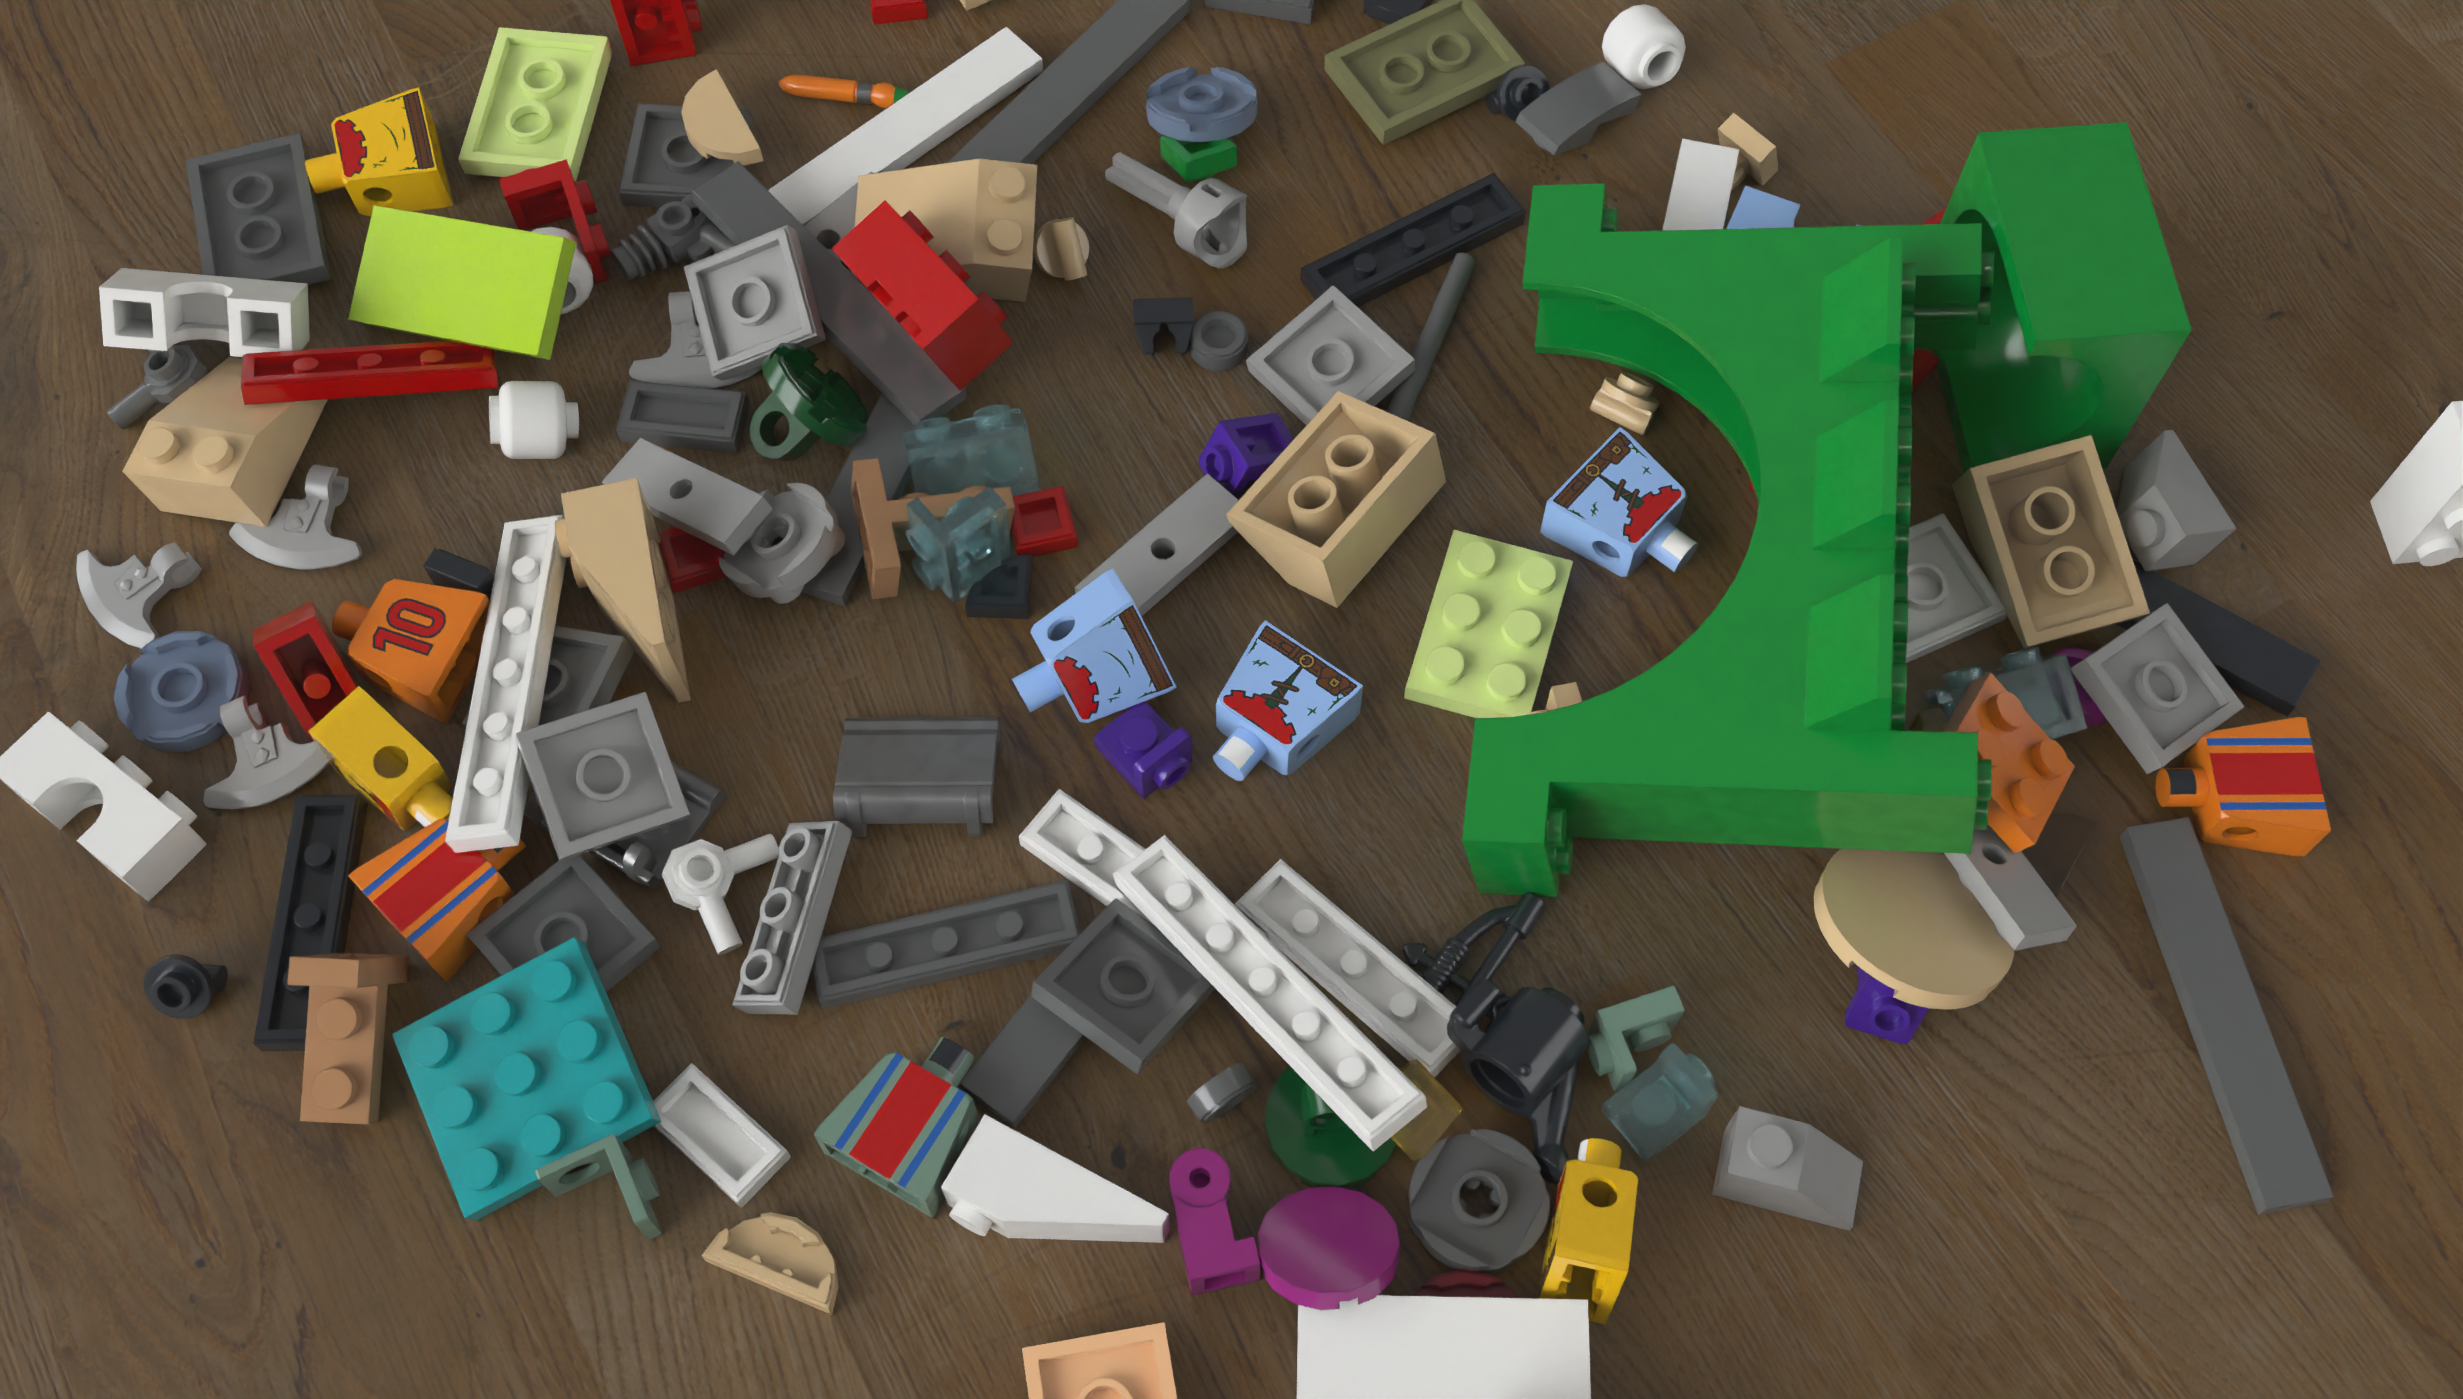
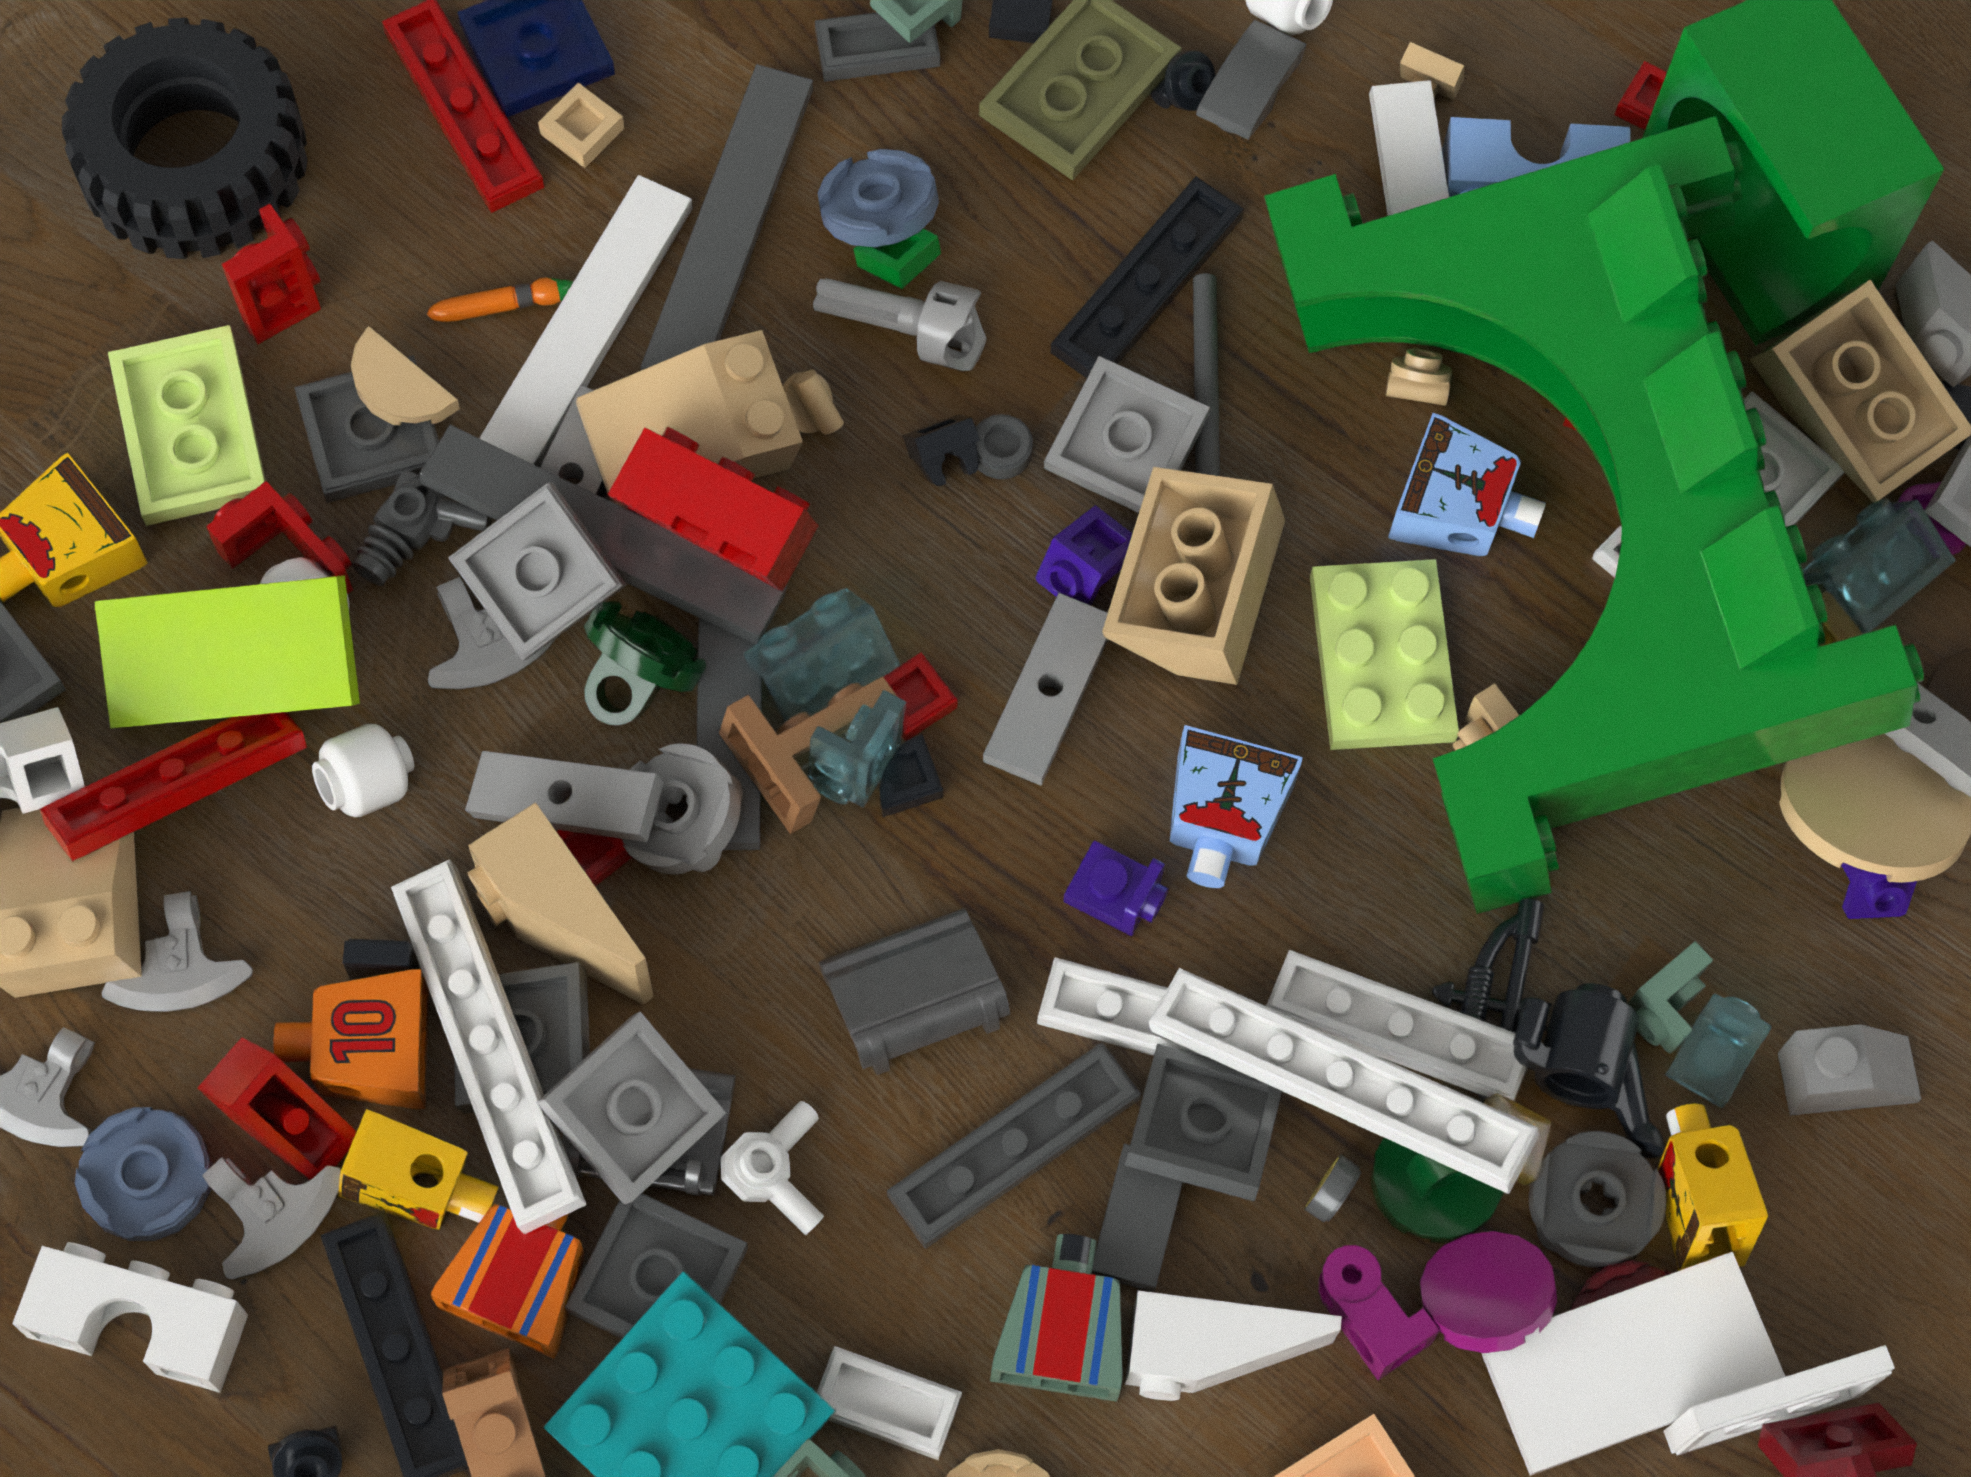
camera: 25 degrees left, 5 degrees up
(683, 416) = (506, 711): dark grey tile -> none
(792, 918) = (870, 1206): light grey tile -> none
(1095, 654) = (1040, 816): light blue torso -> none
(2026, 763) = (1885, 595): orange plate -> none

